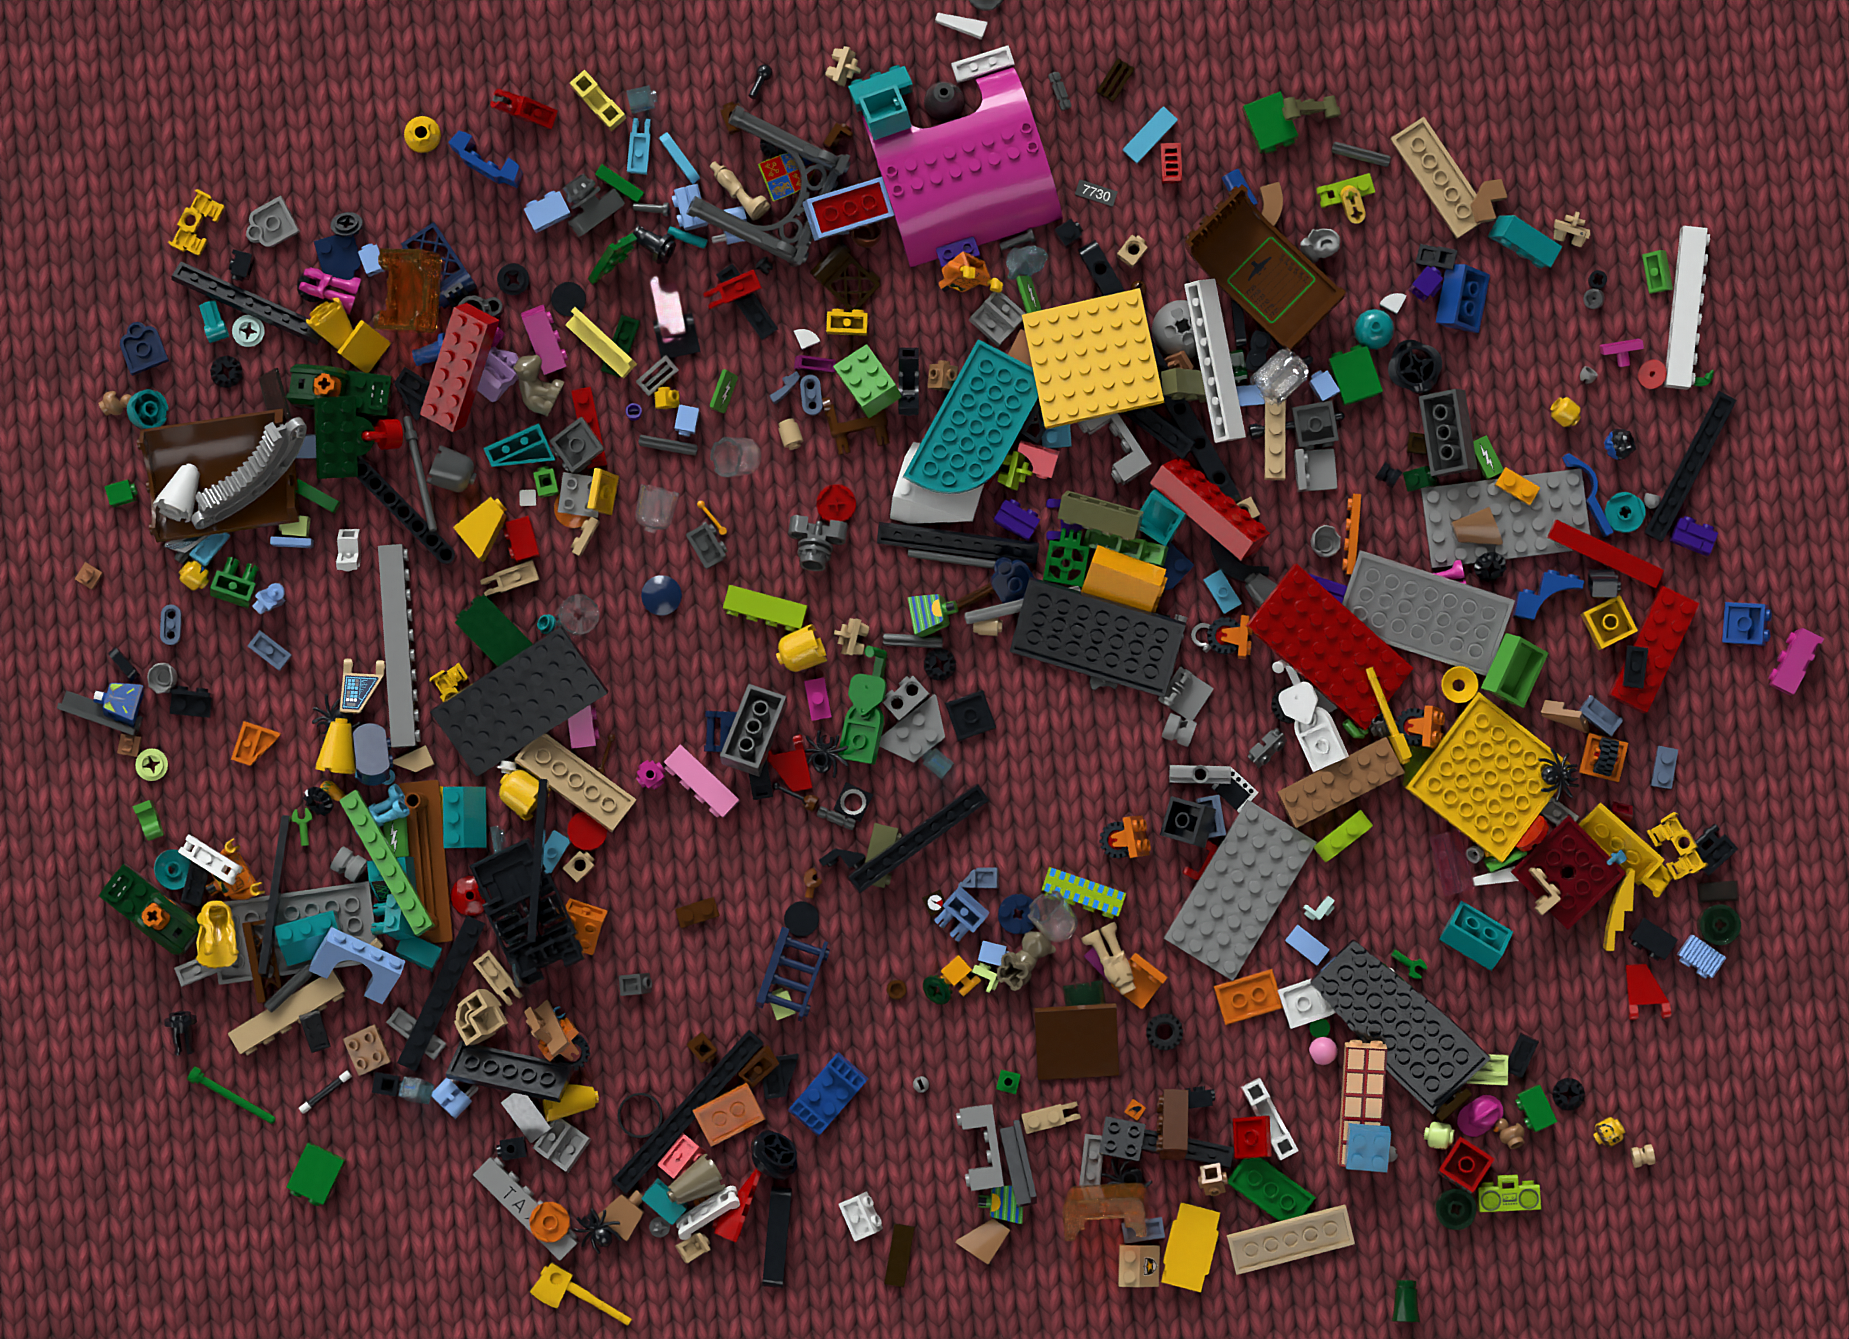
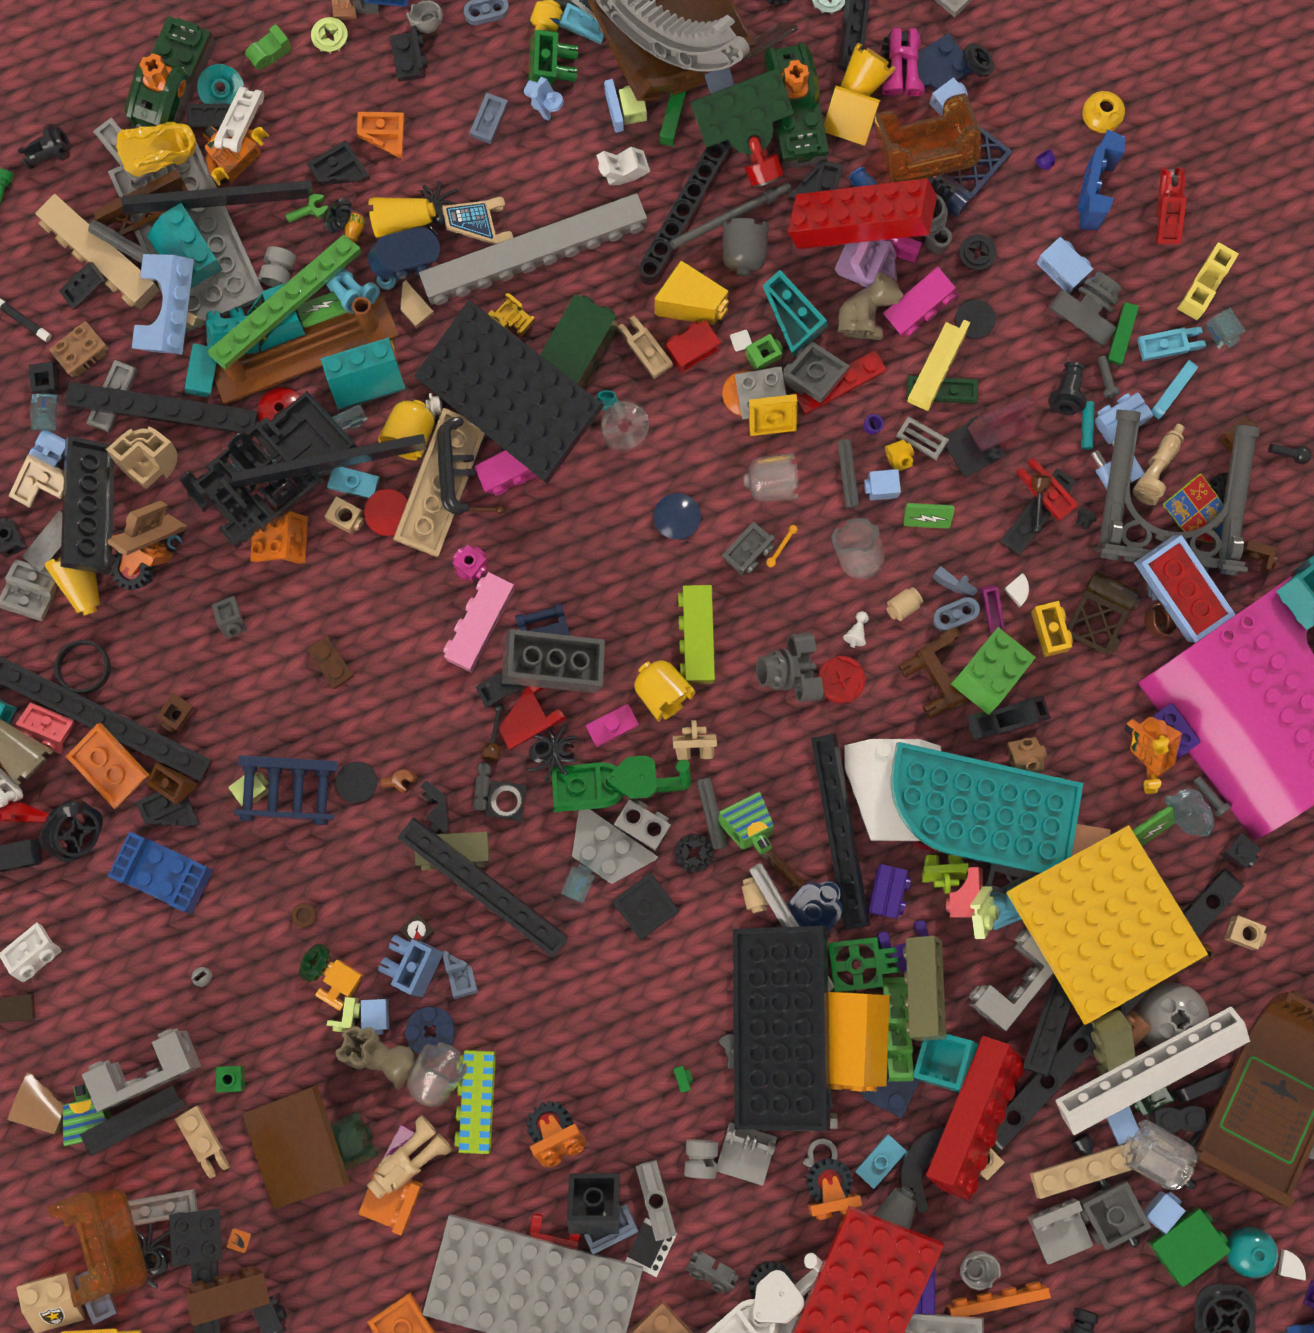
camera: 70 degrees right, 5 degrees down
(273, 789) = (338, 166): none -> black wing
(450, 197) = (1046, 159): none -> dark purple hinge
(468, 1111) = (35, 476): none -> tan tile
(496, 976) = (196, 460): tan hinge -> none
(566, 770) = (446, 470): none -> black piece
(588, 528) = (707, 410): tan plate -> none
(612, 256) = (1040, 346): green wing -> none
(728, 294) = (1040, 484): none -> hinge
(803, 480) = (856, 634): none -> white piece
(951, 558) = (819, 829): dark grey bar -> none
(997, 317) = (1114, 799): light grey slope -> none
(1056, 450) = (985, 913): none -> yellowish green plate
(1096, 193) = (1296, 870): dark grey sticker -> none
(1113, 725) = (683, 1078): none -> green plate
(1176, 1026) = (323, 1249): black tyre -> none

